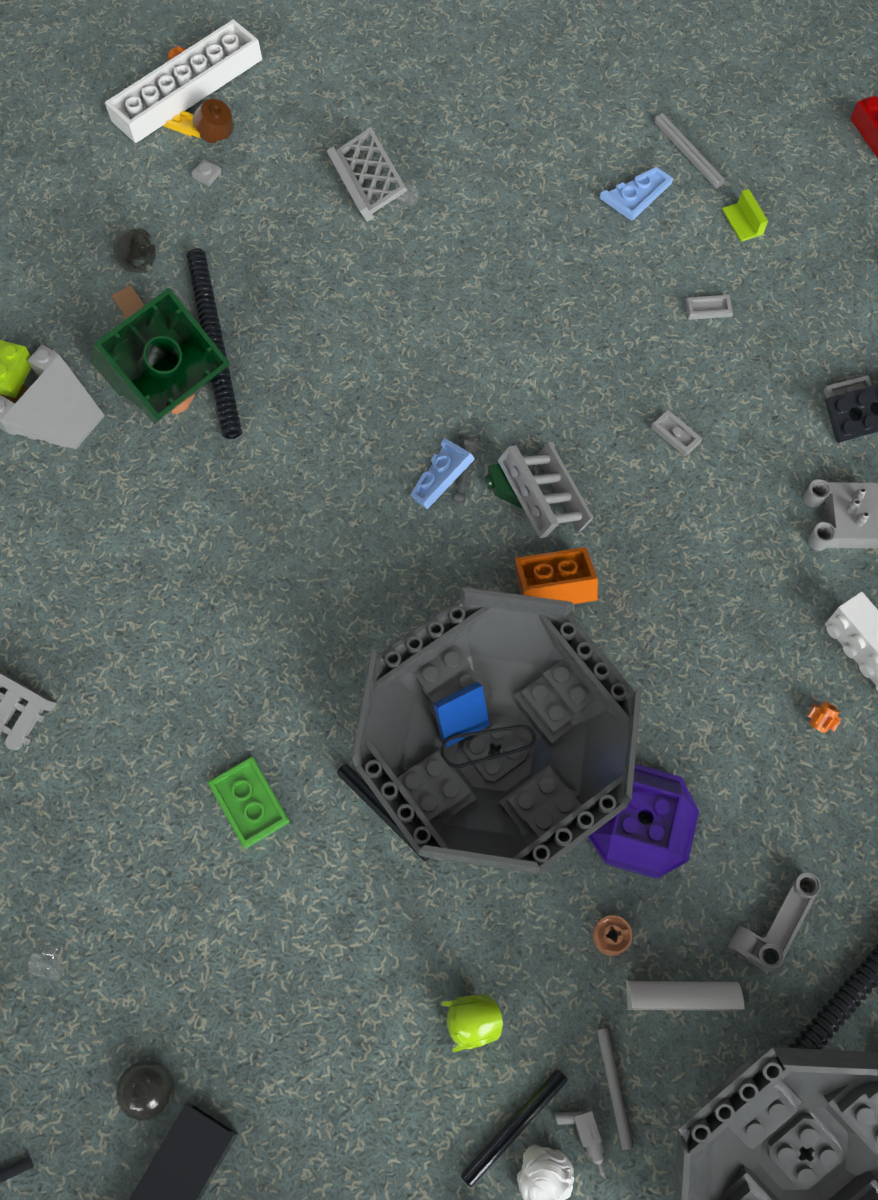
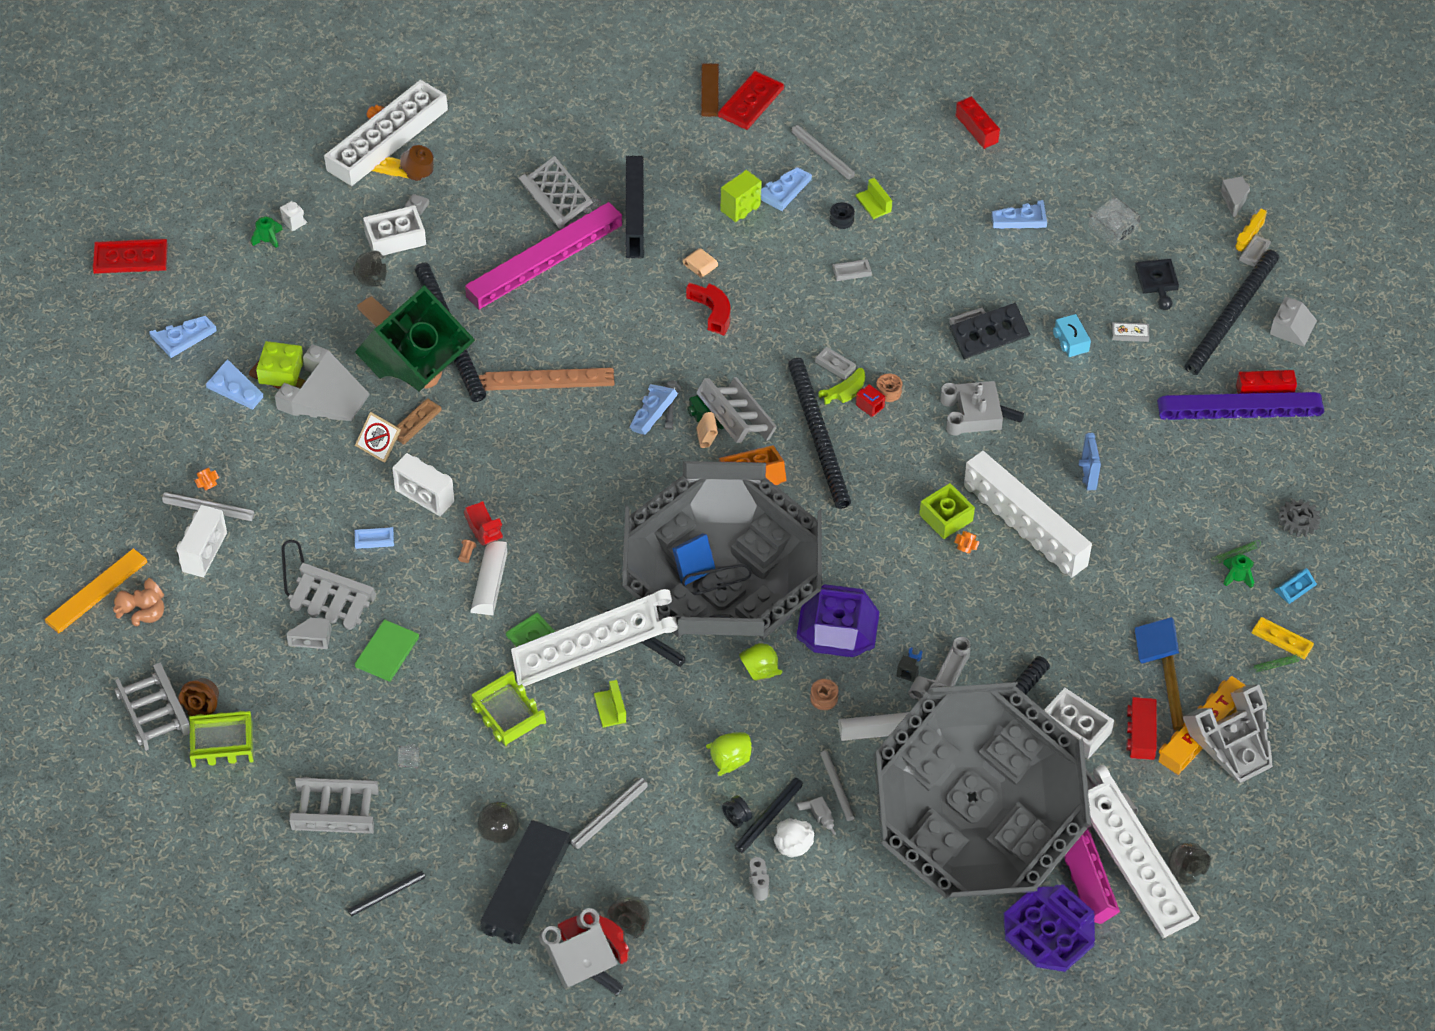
camera: 10 degrees left, 15 degrees down
(25, 189) = (265, 231): none -> green brick
(52, 790) = (387, 650): none -> bright green tile
(59, 174) = (292, 216): none -> white brick
(69, 618) = (374, 537): none -> light blue tile
(98, 478) = (377, 437): none -> piece
(139, 553) = (423, 484): none -> white brick
(151, 458) = (417, 420): none -> medium nougat tile
(170, 204) = (395, 230): none -> white brick
(178, 653) = (466, 551): none -> nougat piece
(188, 906) = (507, 709): none -> window
(201, 698) = (489, 578): none -> white brick
(204, 620) = (482, 525): none -> red arch
(296, 1094) = (609, 813): none -> light grey axle
(308, 831) = (592, 638): none -> white hinge
(320, 417) = (548, 379): none -> nougat hinge
(324, 915) = (611, 705): none -> lime panel
(339, 252) = (543, 255): none -> dark pink brick
(456, 200) = (634, 206): none -> black brick
(470, 1123) = (736, 811): none -> black wheel
(505, 513) = (707, 430): none -> light nougat piece
(526, 279) = (700, 262): none -> light nougat piece
(529, 886) = (760, 661): none -> lime helmet
(540, 334) = (714, 299): none -> red arch
(565, 61) = (709, 90): none -> reddish brown tile
(585, 197) = (741, 196): none -> lime brick
(611, 78) = (751, 100): none -> red plate
(646, 533) = (819, 433): none -> black piece
(687, 470) = (845, 390): none -> lime piece
(710, 233) = (842, 215): none -> black wheel
(715, 491) = (870, 400): none -> red brick
(730, 904) = (907, 666): none -> pearl dark grey piece
(739, 466) = (890, 381): none -> nougat wheel
(802, 668) = (947, 511): none -> lime brick

